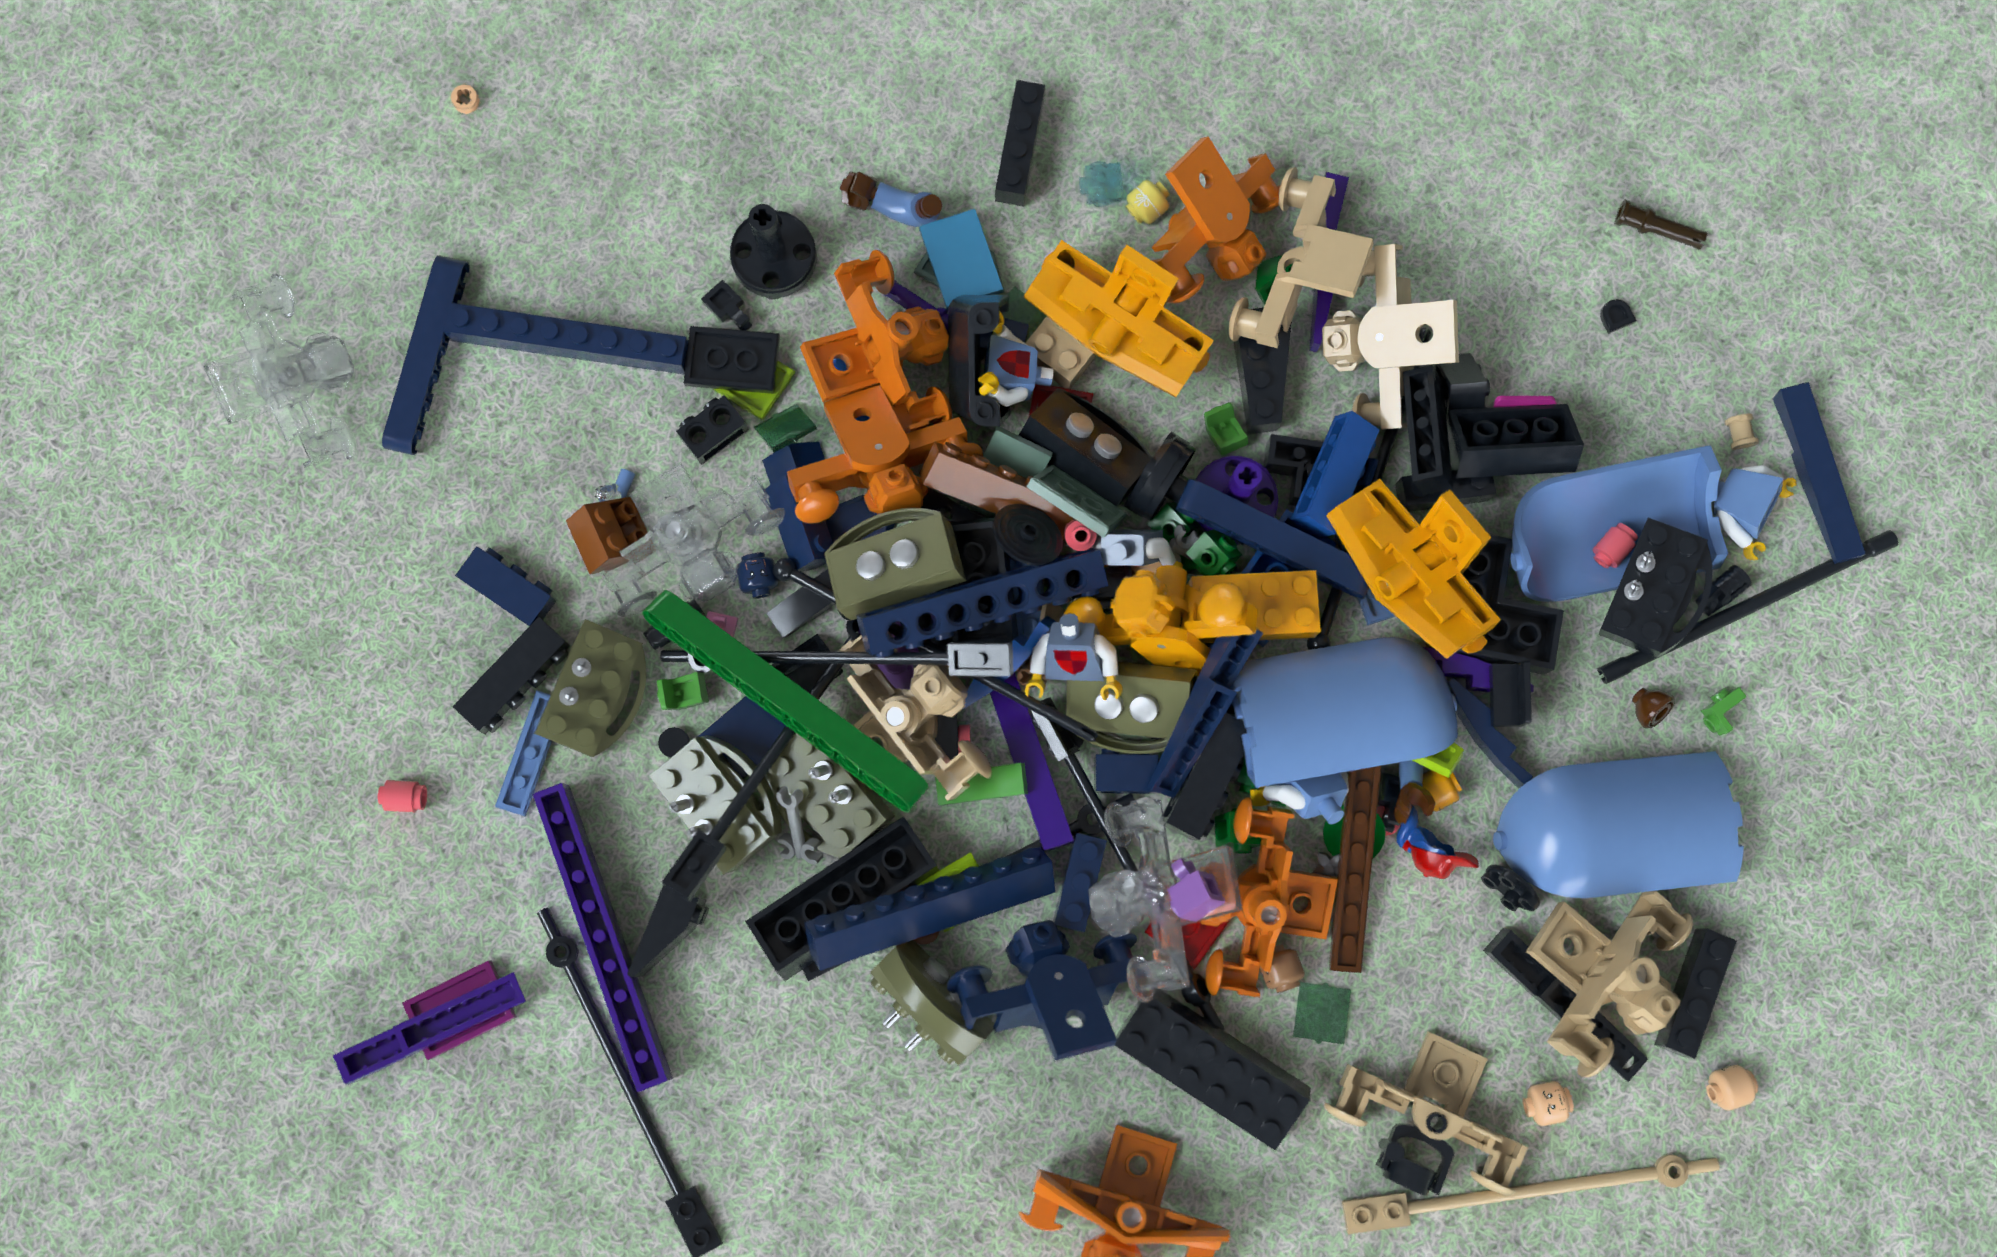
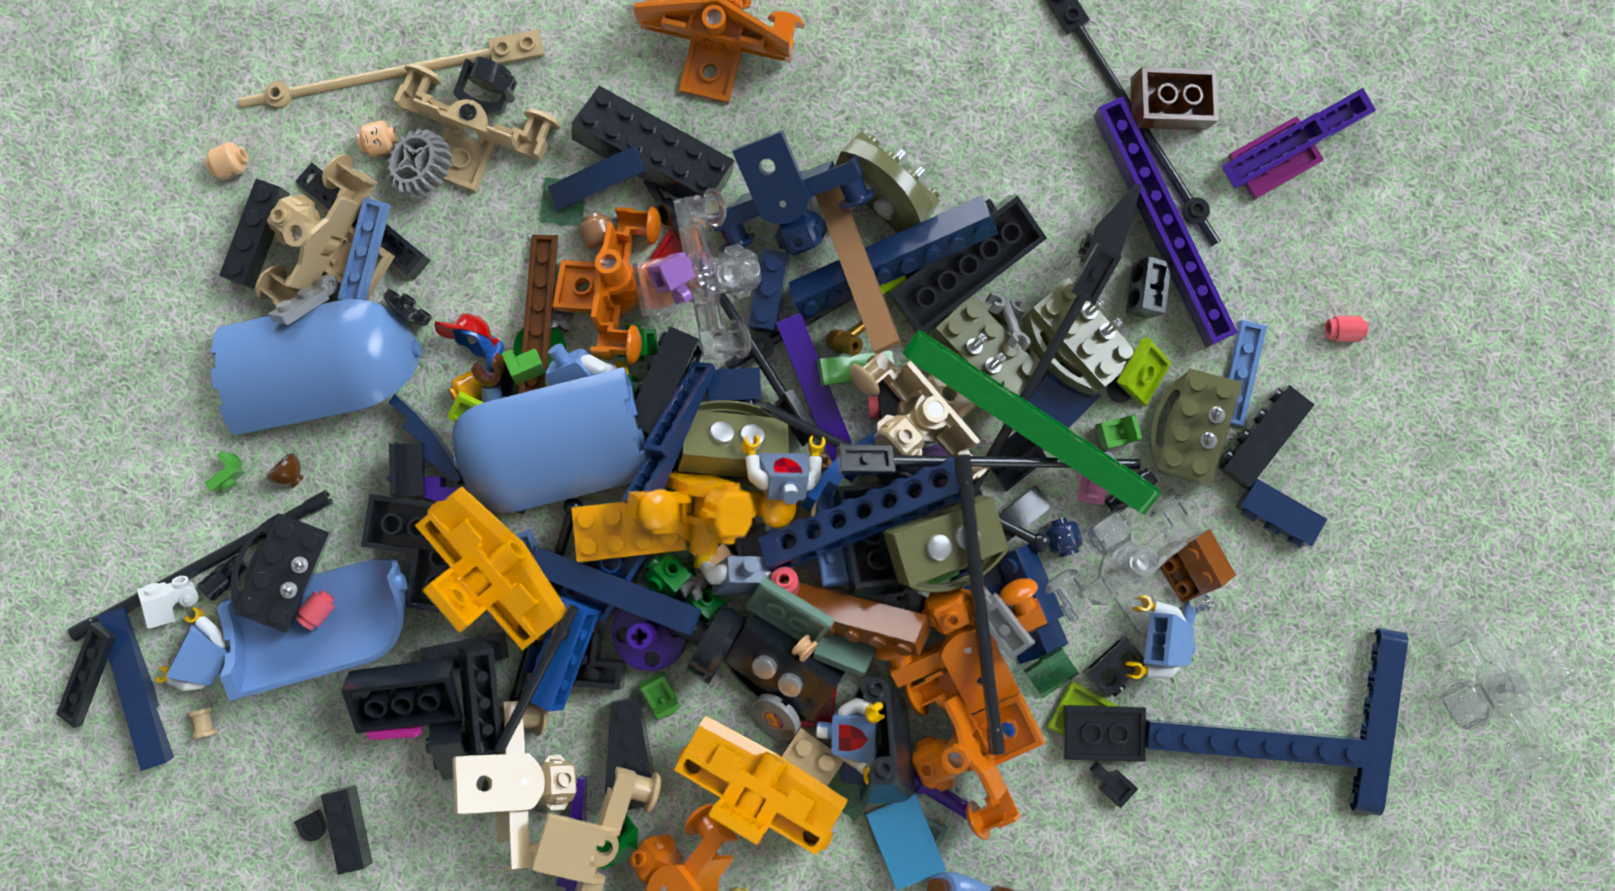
camera: 170 degrees left, 5 degrees up
(573, 1088) = (1174, 98): none -> reddish brown brick
(629, 858) = (1148, 287): none -> black brick
(645, 758) = (1144, 371): none -> lime tile
(652, 449) = (1168, 641): none -> medium blue torso
(772, 252) = (1076, 836): black piece -> none
(839, 472) = (1006, 627): none -> light grey hinge
(869, 624) = (964, 477): none -> black piece
(972, 885) = (858, 271): none -> medium nougat tile
(992, 817) = (846, 342): none -> pearl gold piece
(1027, 534) = (831, 577): black shield -> none
(1061, 461) = (804, 648): none -> light nougat bush
(1097, 395) = (775, 717): none -> light grey tile
(1280, 1031) = (597, 178): none -> dark blue slope
(1336, 491) = (560, 633): none -> black bar
(1372, 804) = (524, 366): none -> bright green panel
(1487, 1064) = (418, 163): none -> light grey gear
(1562, 958) = (364, 250): none -> medium blue tile
(1577, 308) = (346, 829): none -> black brick
(1632, 900) = (305, 301): none -> light grey hinge
(1793, 569) = (158, 600): none -> white brick
(1874, 490) = (86, 674): none -> black plate

